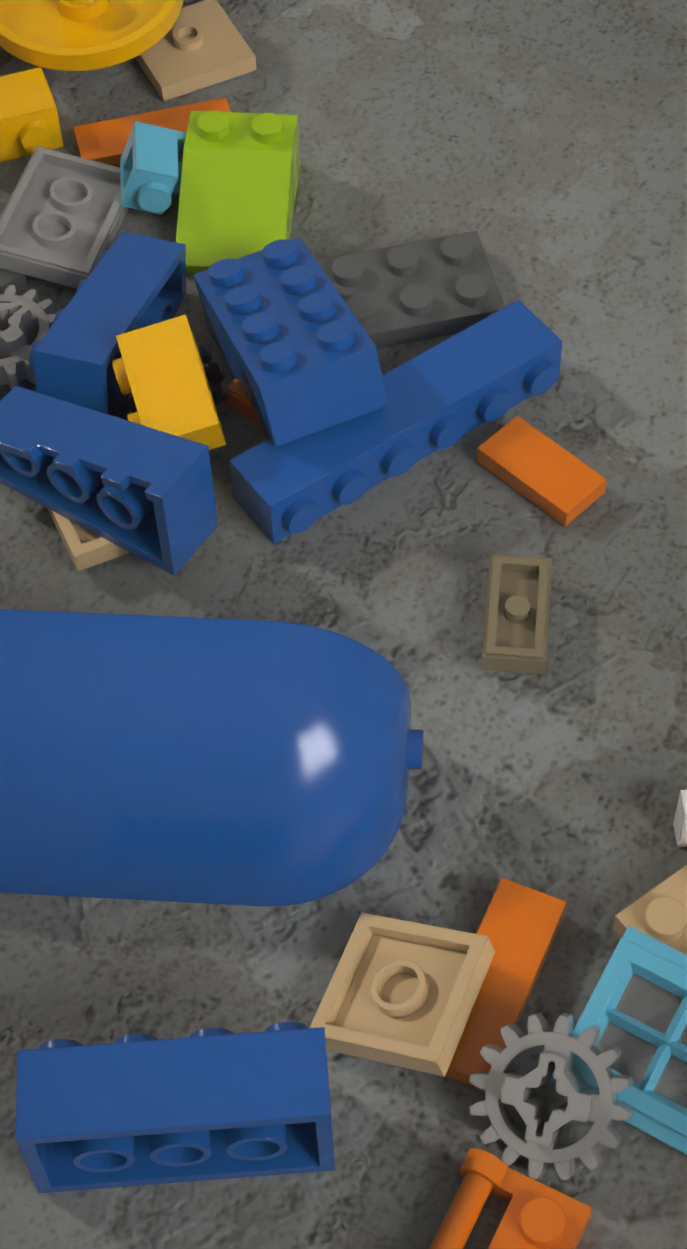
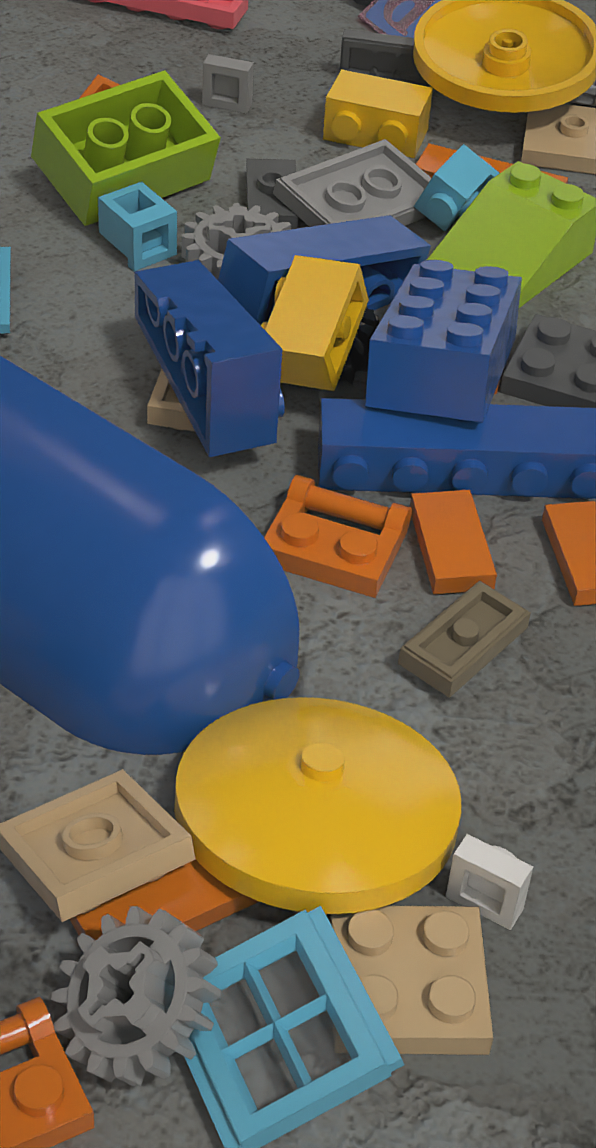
camera: 30 degrees right, 10 degrees down
(337, 598) = (333, 550): none -> orange plate
(429, 528) = (452, 541): none -> orange tile
(534, 837) = (317, 805): none -> yellow dish

